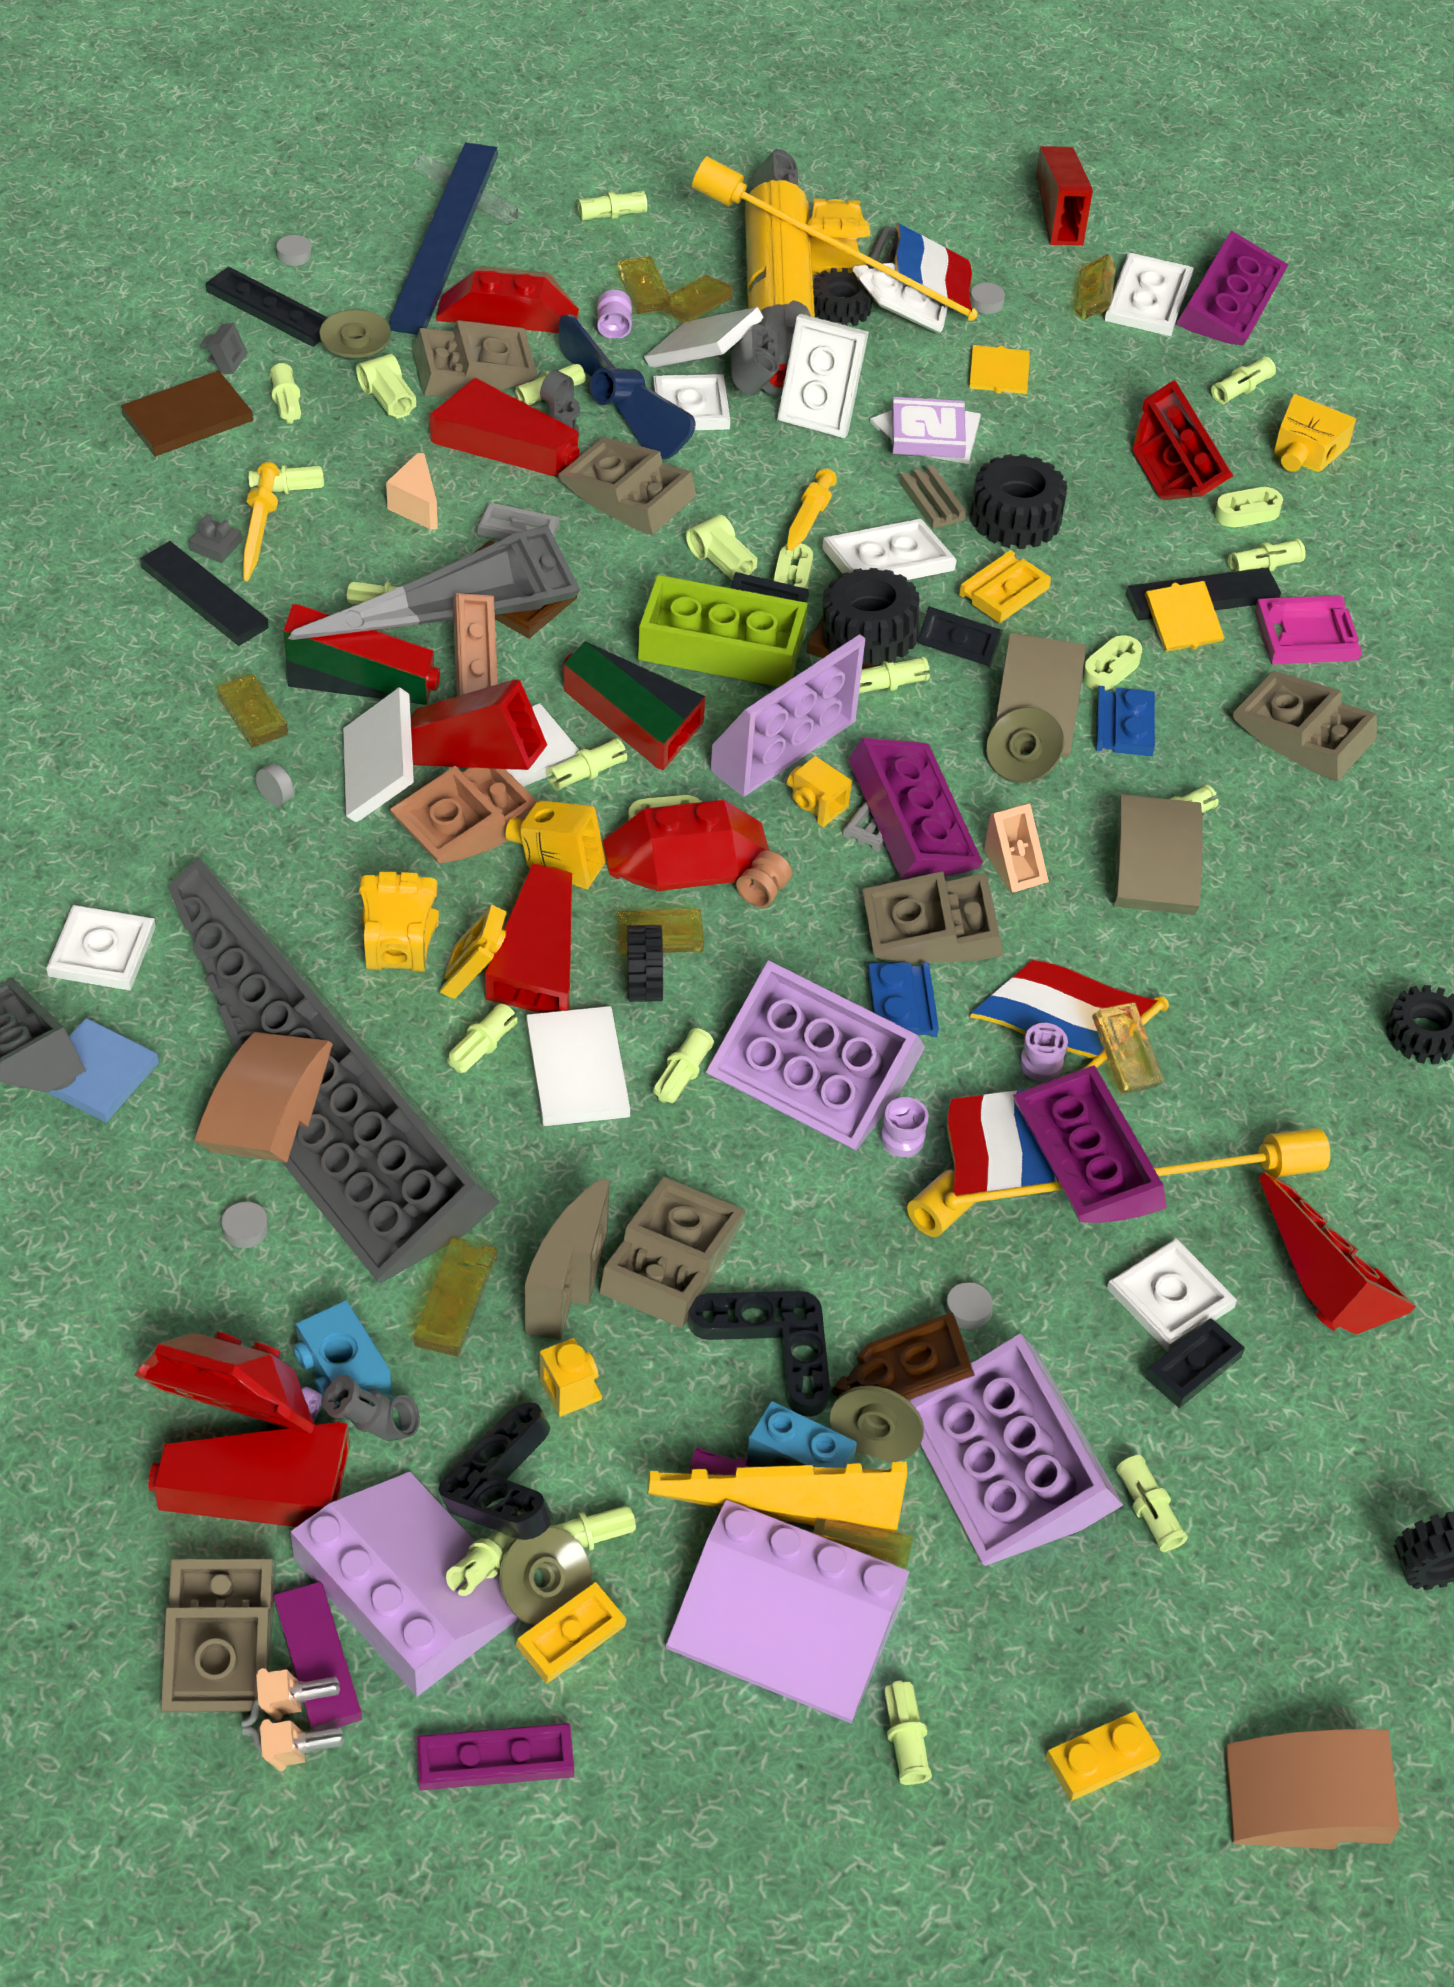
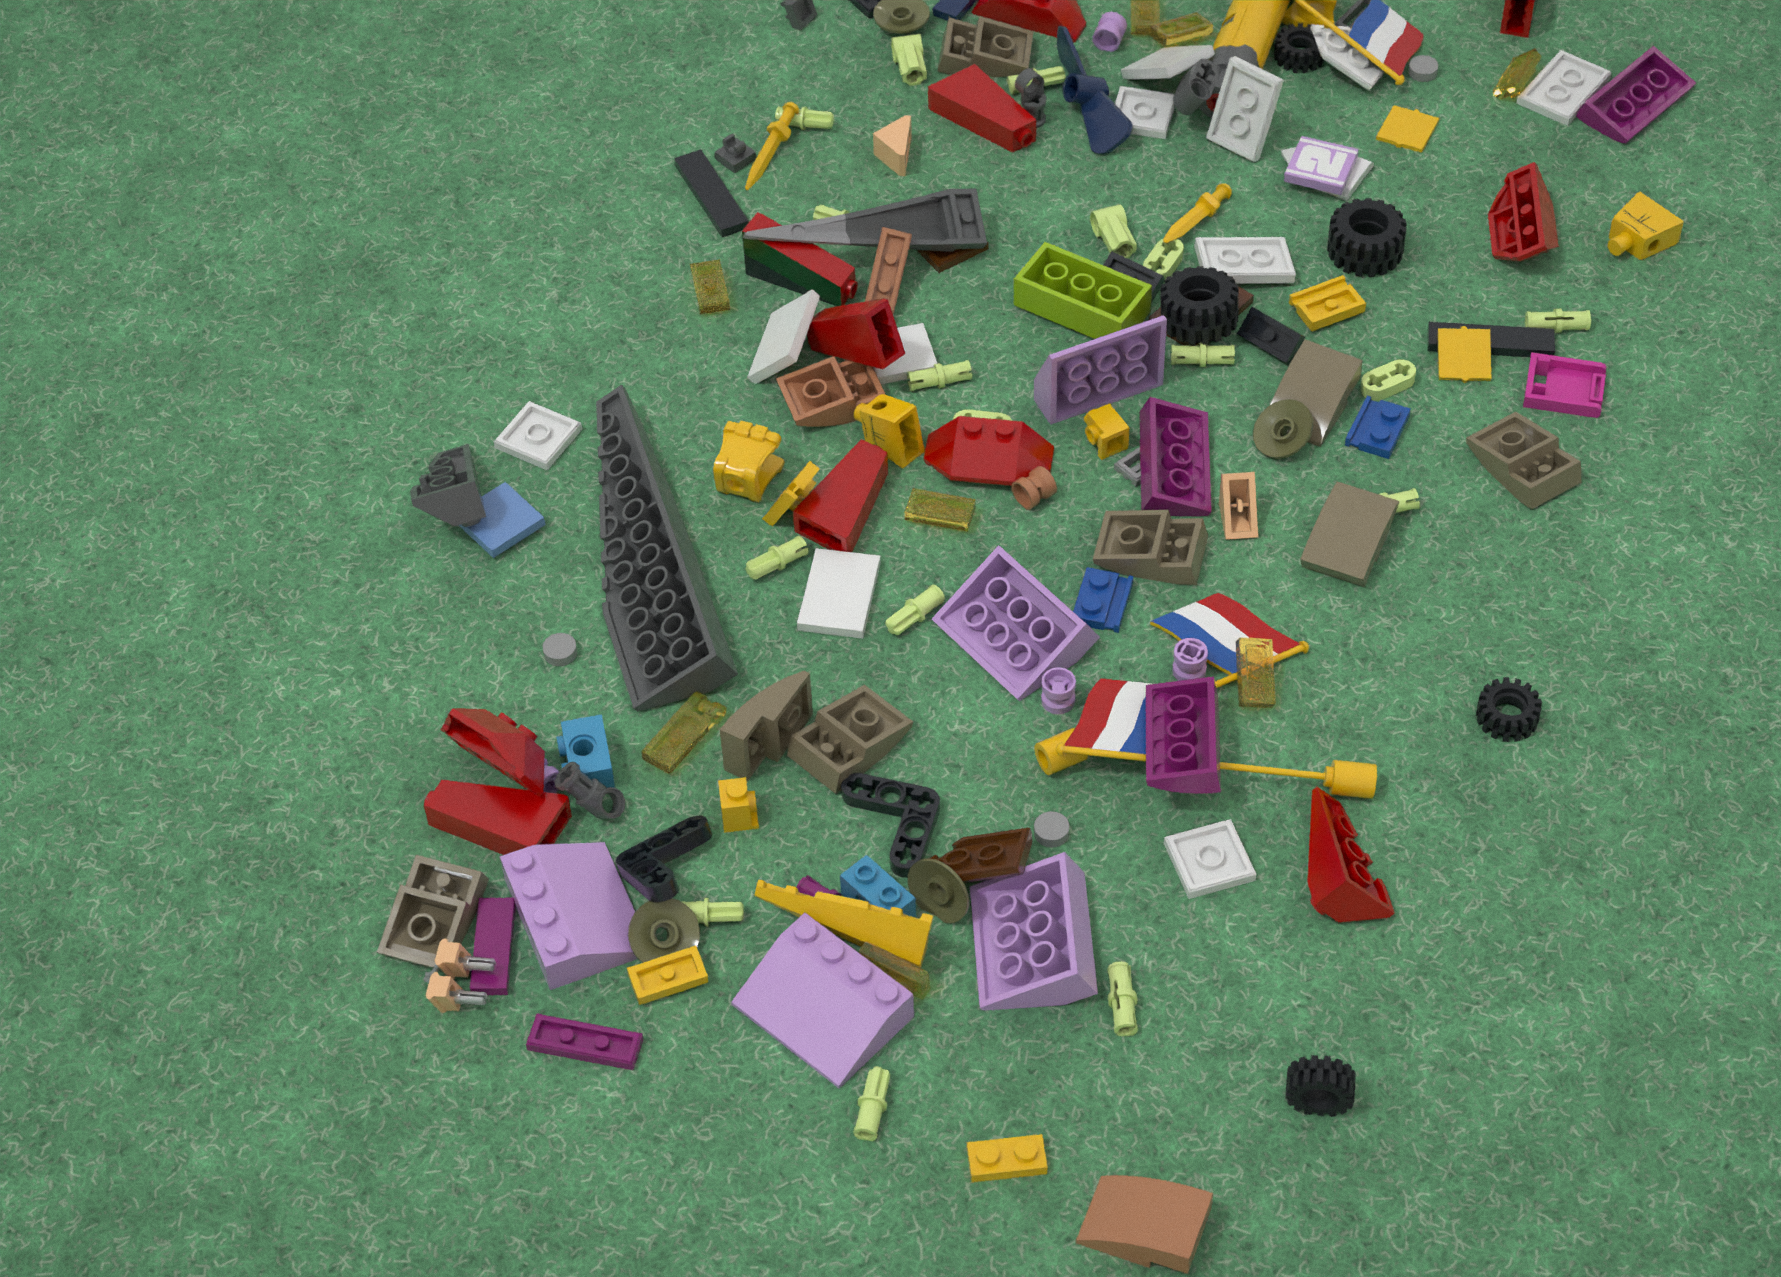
camera: 25 degrees right, 0 degrees up
(186, 413) = (753, 54): reddish brown tile -> none
(264, 1097) = (602, 563): nougat slope -> none
(274, 784) = (703, 344): light grey tile -> none
(285, 392) = (831, 51): yellowish green axle -> none
(480, 1563) = (617, 912): yellowish green pin -> none
(501, 529) = (944, 182): light grey tile -> none
(630, 484) = (1064, 168): dark tan slope -> none
(634, 702) = (994, 337): slope -> none
(645, 963) = (913, 529): black tyre -> none
(938, 494) = (1300, 205): dark tan tile -> none
(1195, 1362) = (1201, 910): black plate -> none
(1248, 507) = (1563, 277): yellowish green beam -> none
(1257, 373) = (1616, 171): yellowish green pin -> none

